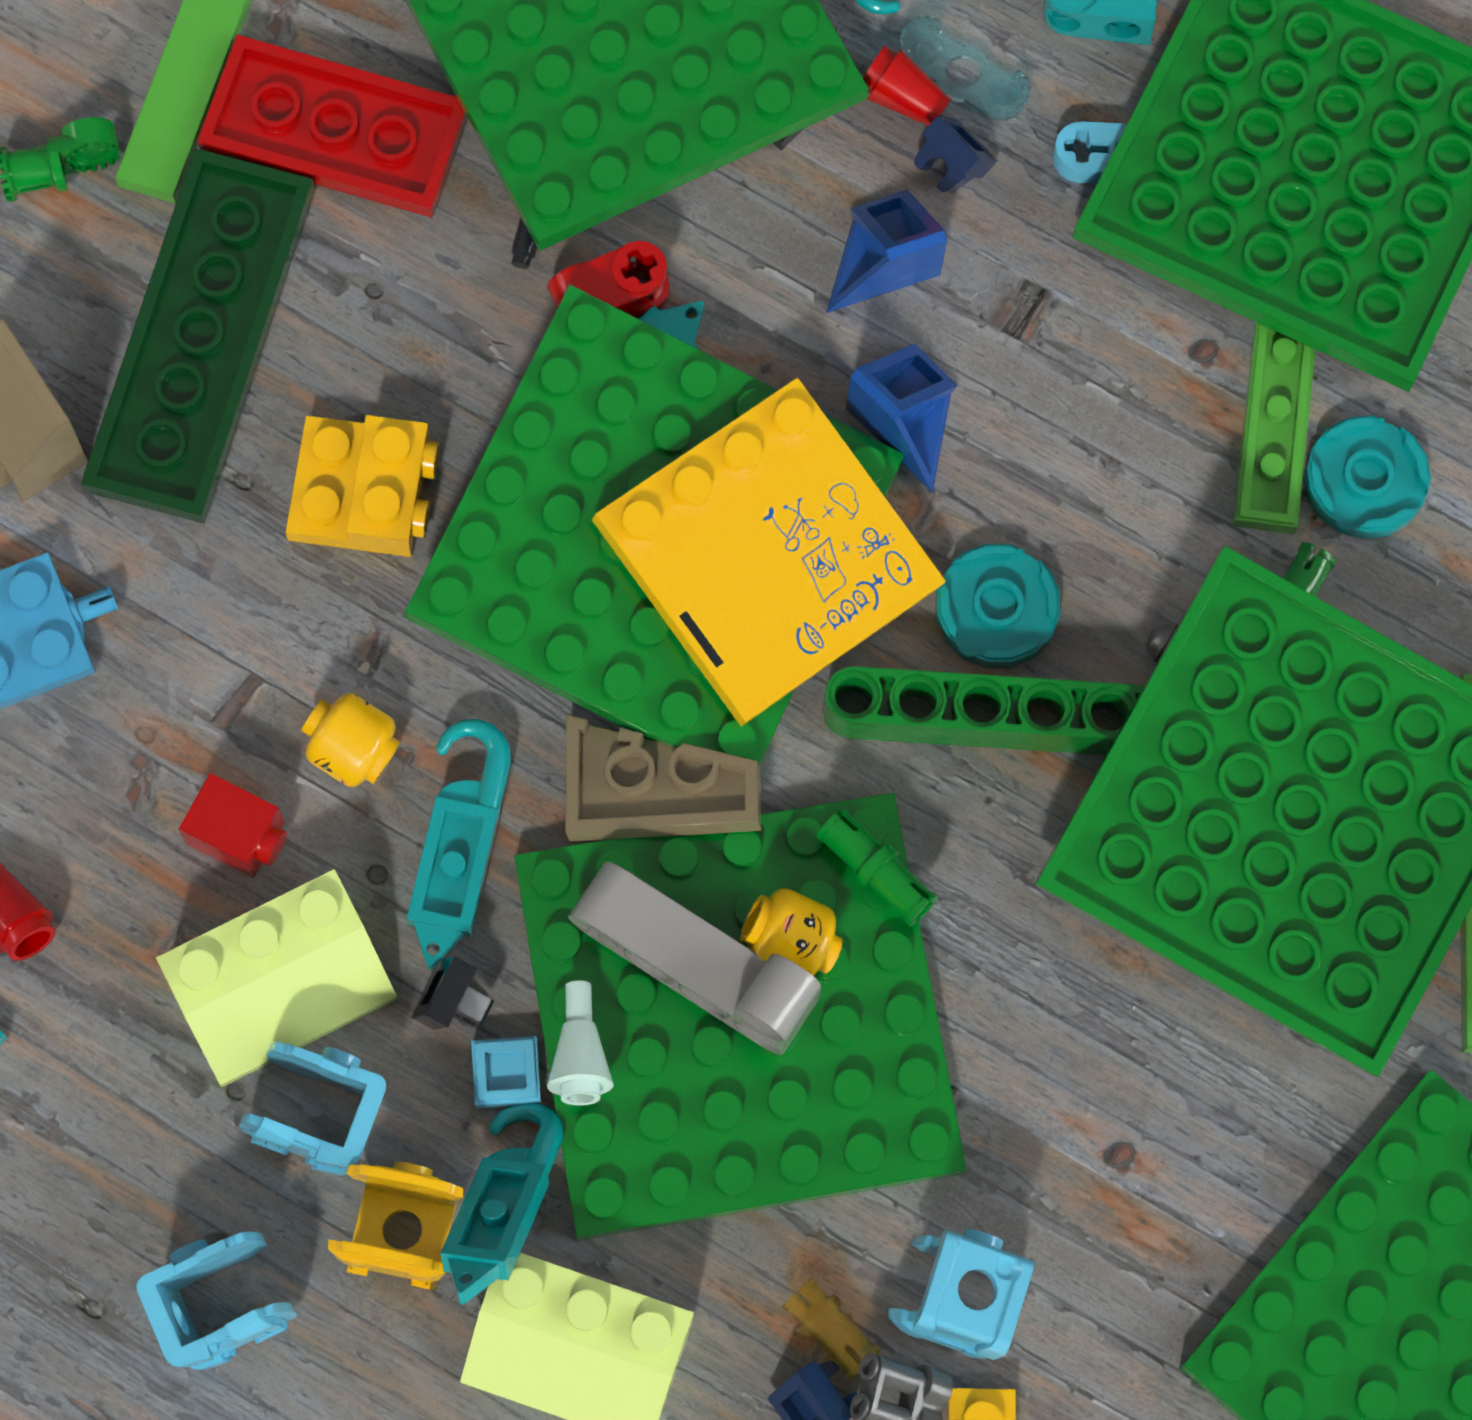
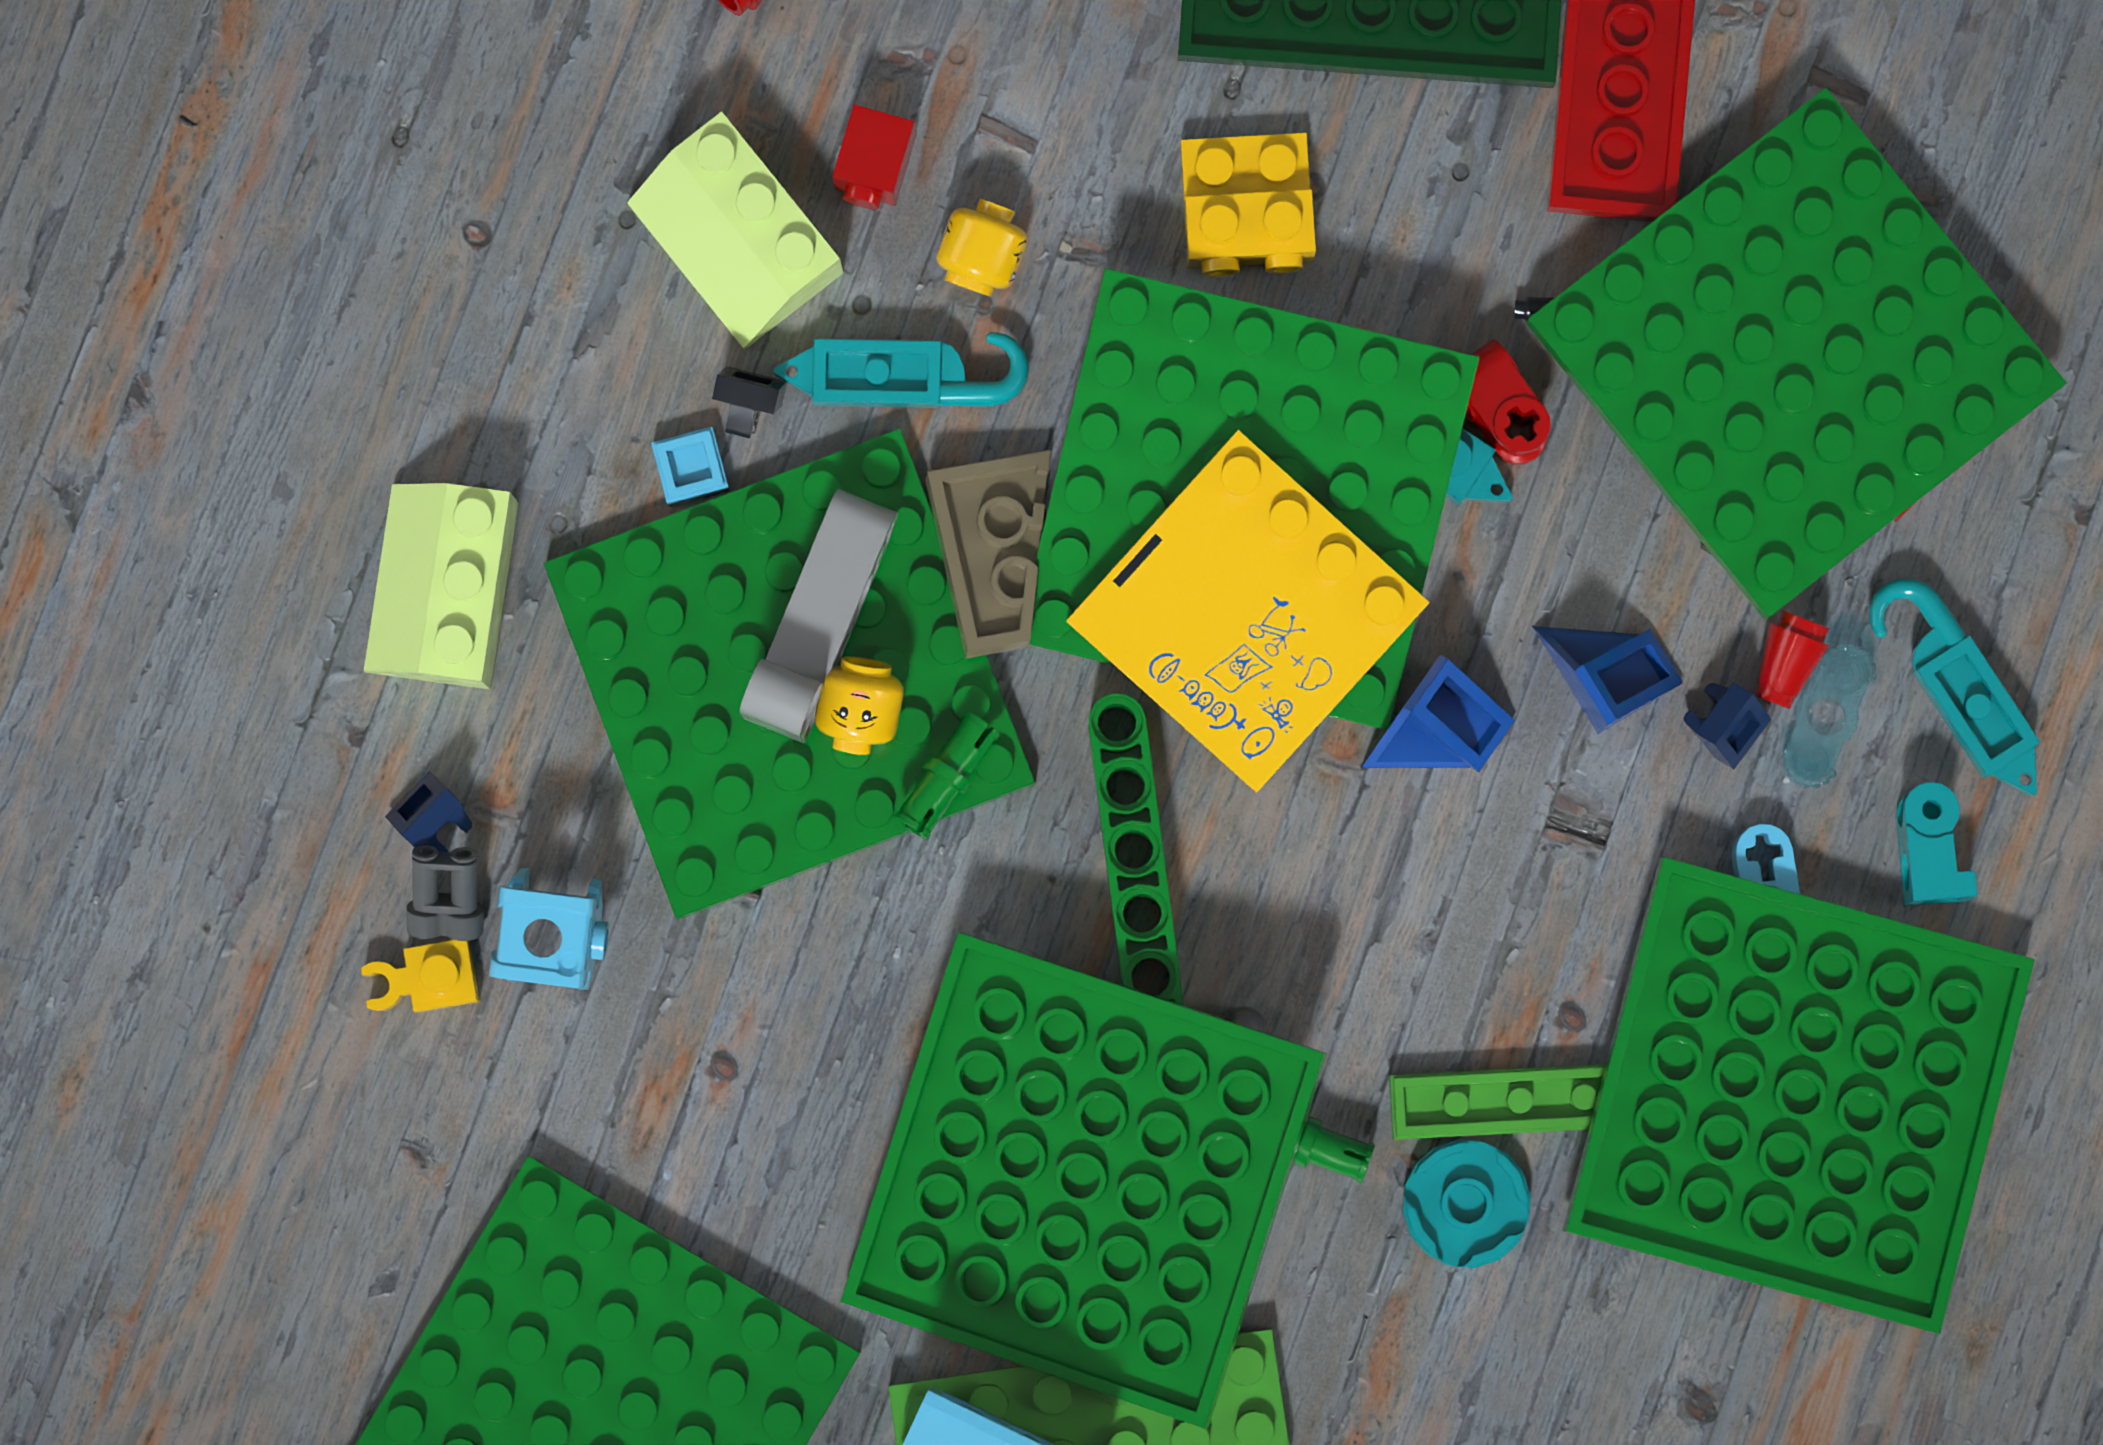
camera: 85 degrees right, 10 degrees up
(170, 1317) = (409, 198): medium azure piece -> none
(336, 1069) = (653, 306): medium azure piece -> none
(394, 1191) = (490, 380): yellow piece -> none
(501, 1203) = (549, 482): teal plate -> none
(579, 1062) = (701, 528): light aqua cone -> none
(829, 1326) = (503, 816): clear yellow pin -> none
(997, 606) = (1252, 852): teal tile -> none

